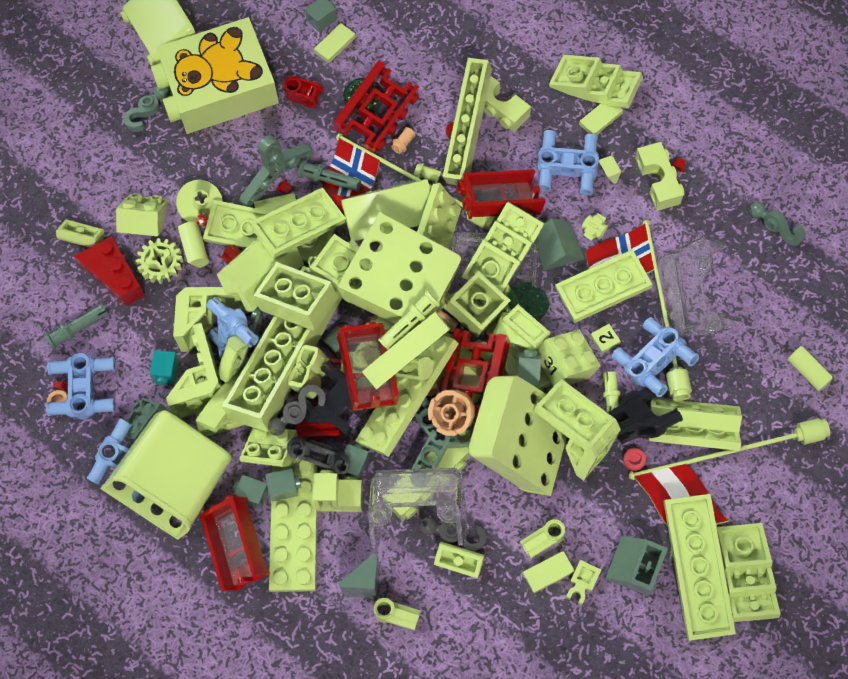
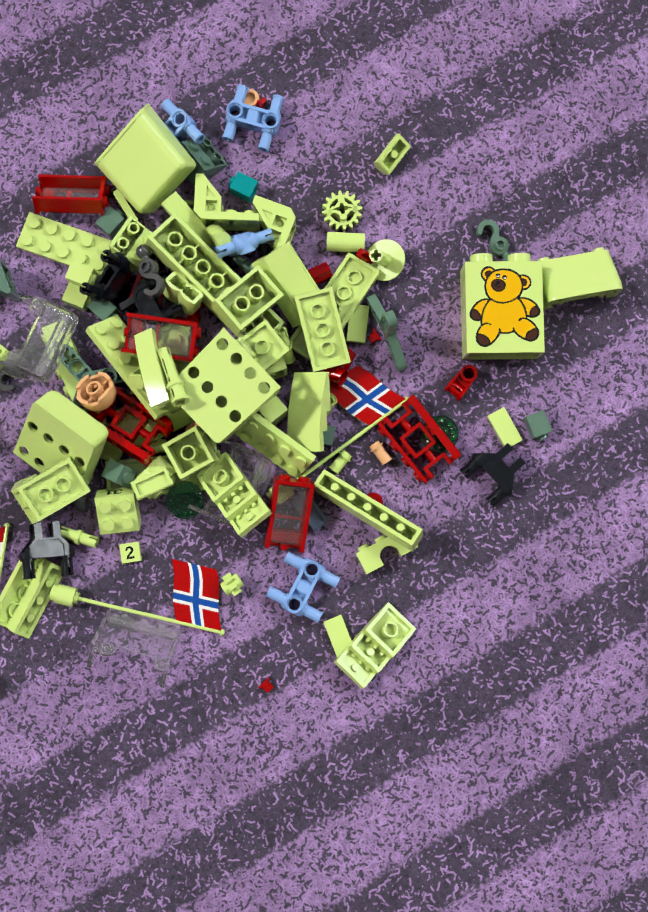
camera: 100 degrees right, 15 degrees up
(66, 331) = (307, 120): sand green pin -> none
(110, 269) = (346, 169): red wedge -> none
(141, 215) = (391, 209): yellowish green slope -> none
(227, 483) = (124, 204): none -> yellowish green tile
(283, 484) = (100, 242): sand green brick -> none
(320, 173) = (373, 369): sand green pin -> none
(331, 343) = (211, 329): sand green brick -> none
(377, 34) = (497, 470): none -> black connector
(558, 244) = (229, 548): sand green slope -> none
(603, 286) = (174, 569): yellowish green plate -> none
(610, 168) = (280, 619): yellowish green slope -> none
(634, 459) = (19, 533): coral tile -> none
(655, 356) = (92, 583): light blue piece -> none
(656, 160) = (241, 663): yellowish green arch -> none
(776, 222) = (176, 744): sand green piece -> none
(810, 368) = (33, 710): yellowish green brick -> none

